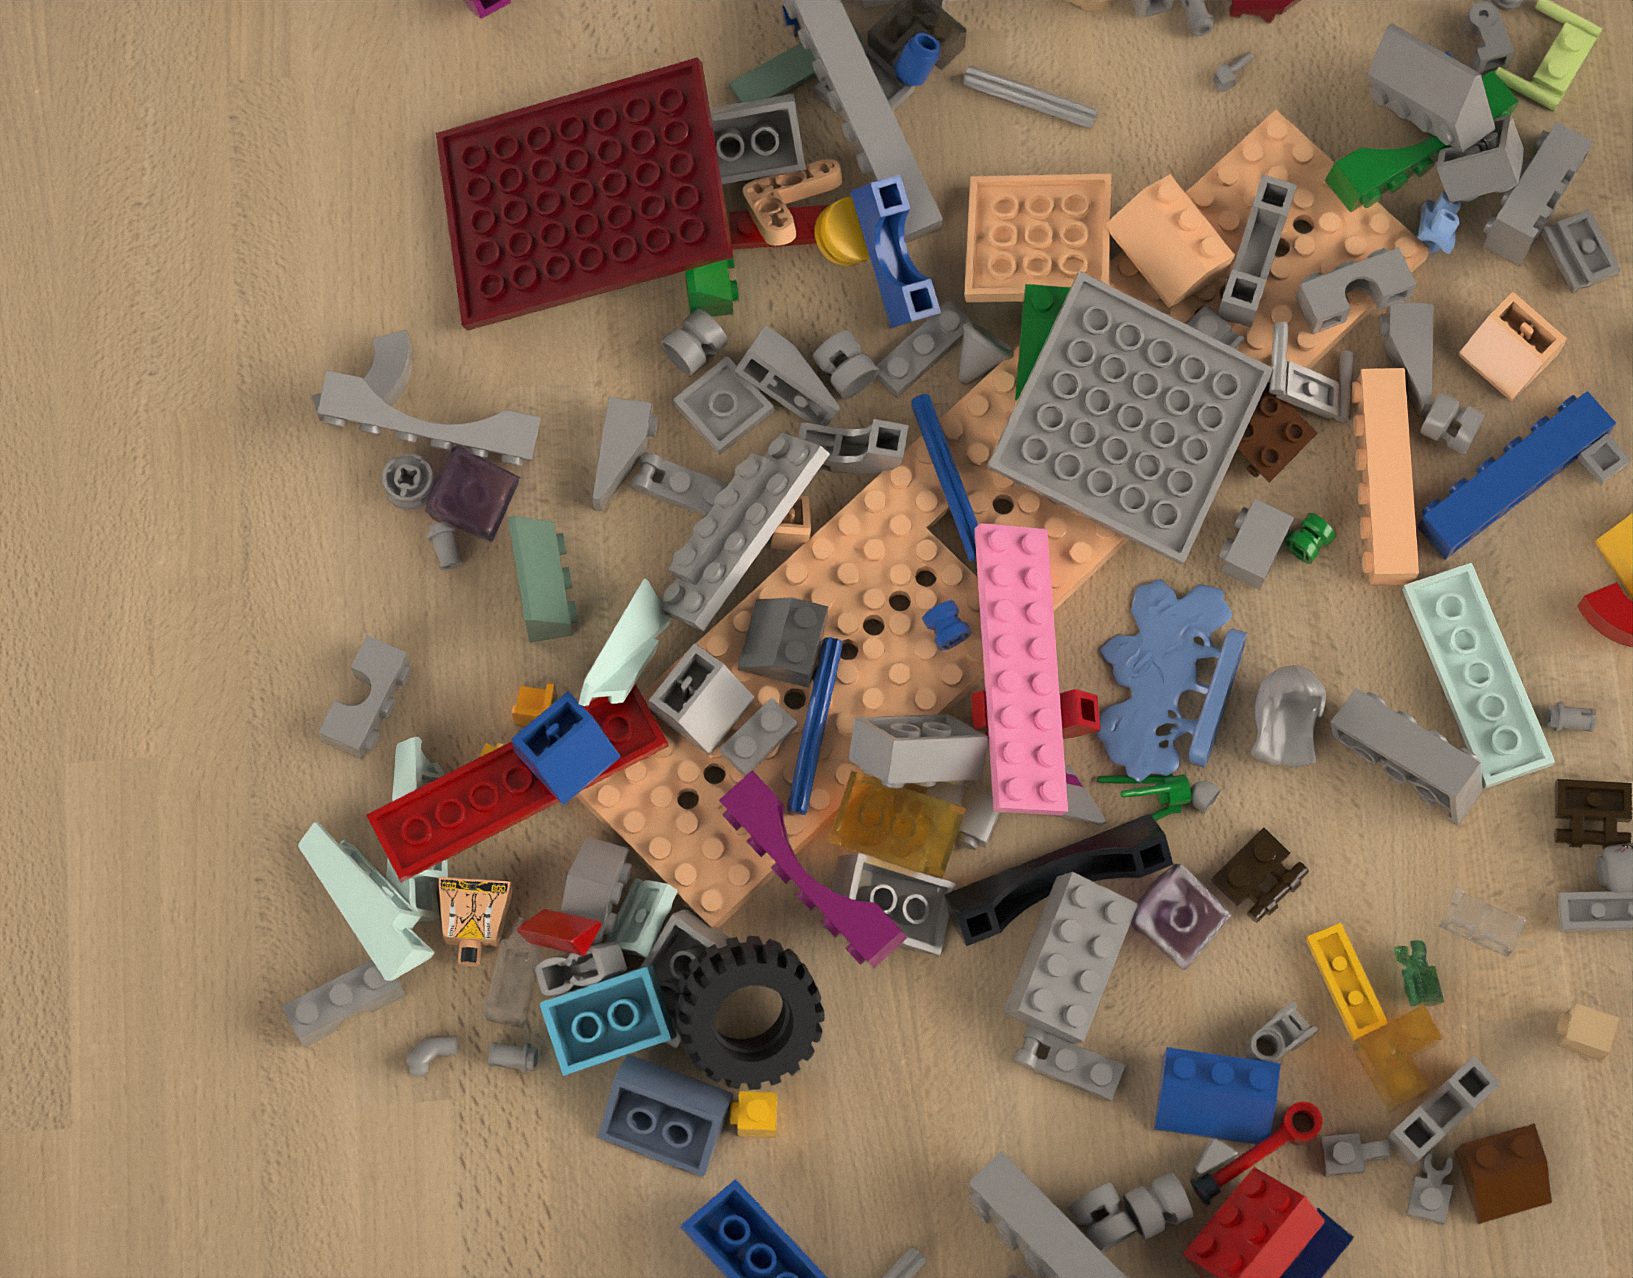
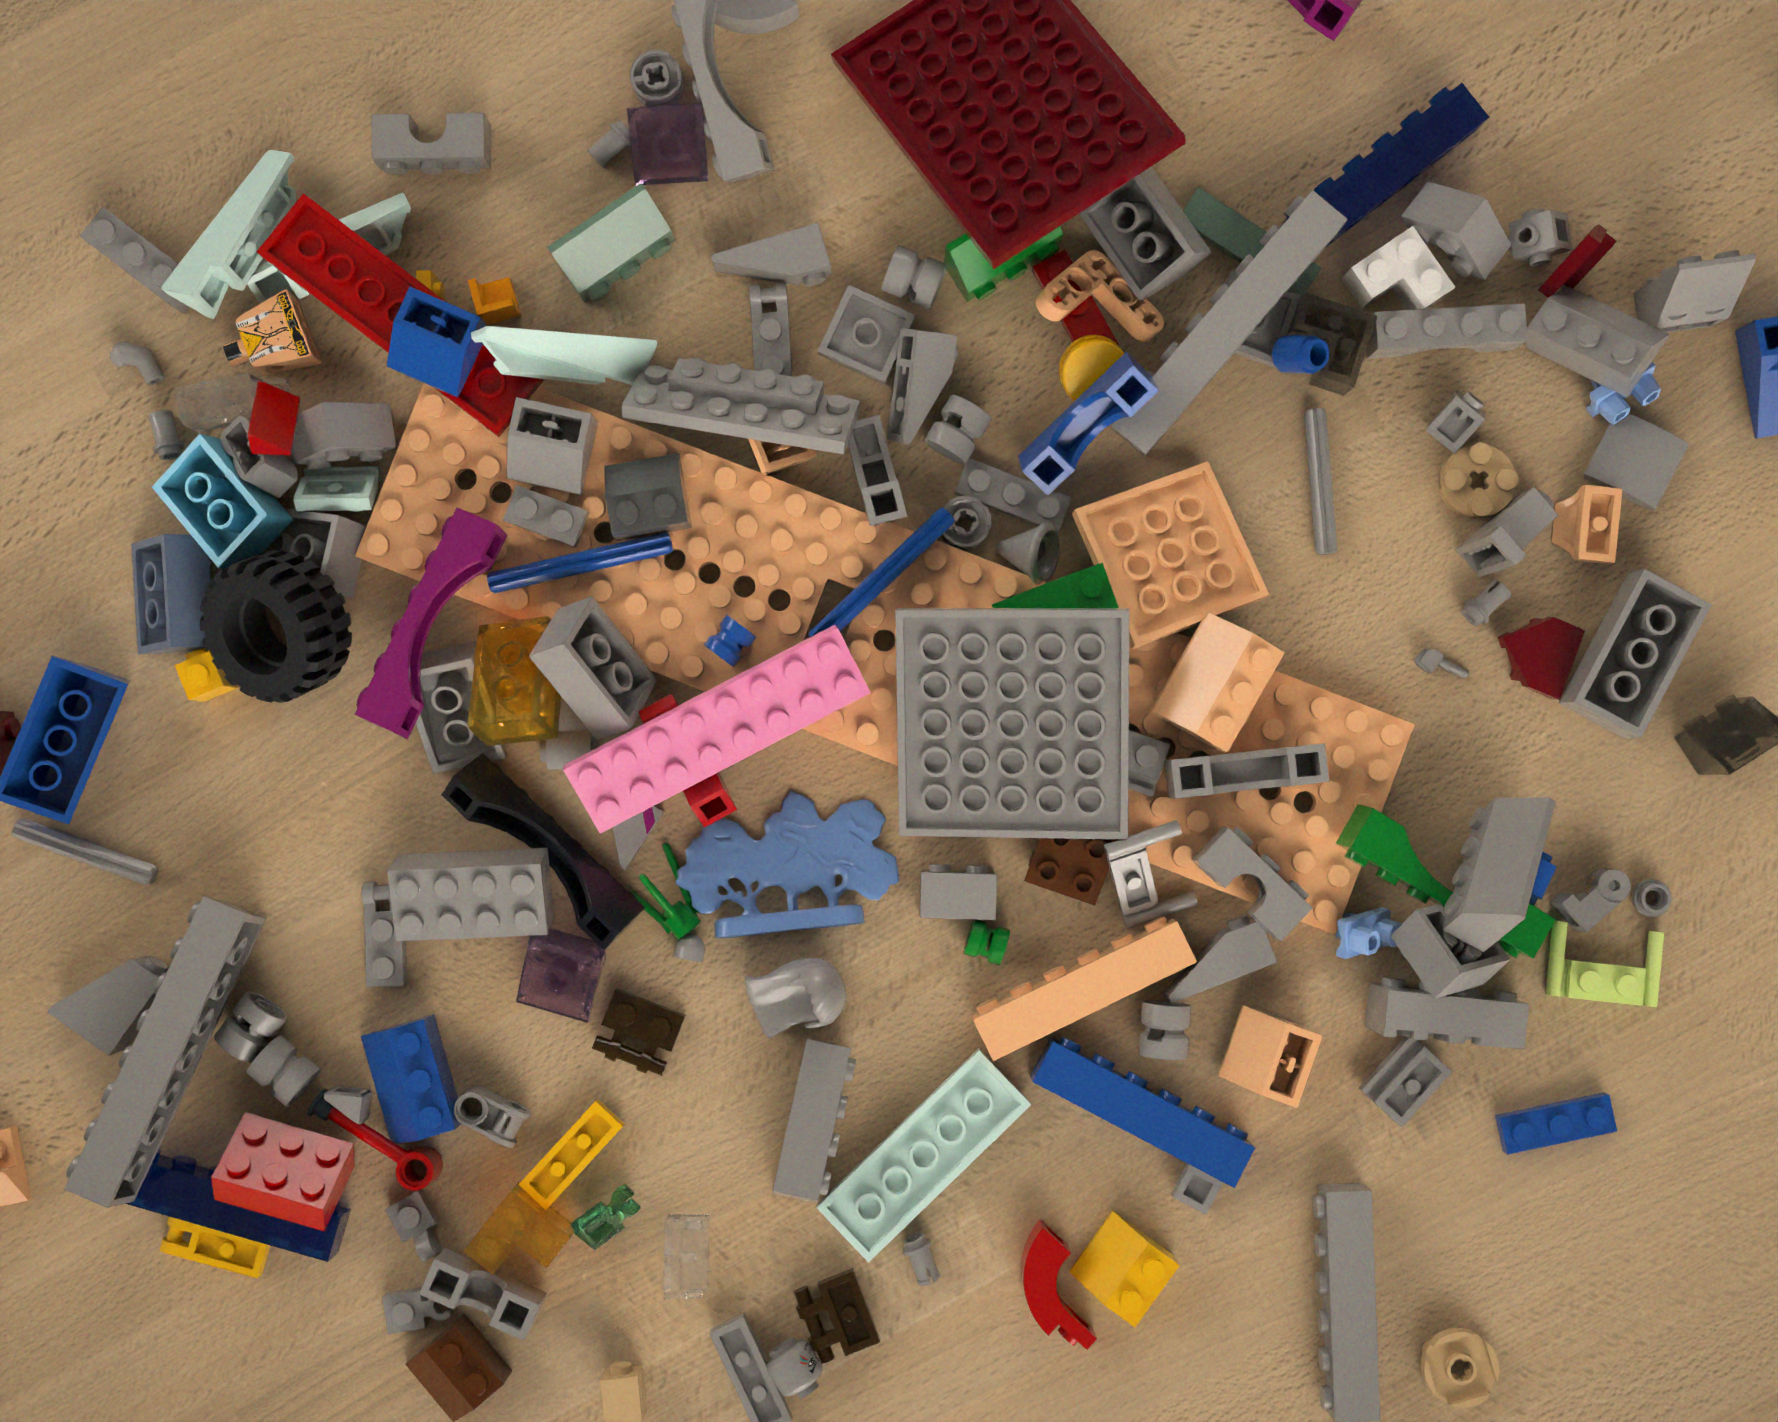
camera: 65 degrees right, 15 degrees up
(930, 381) = (978, 514): none -> light grey wheel

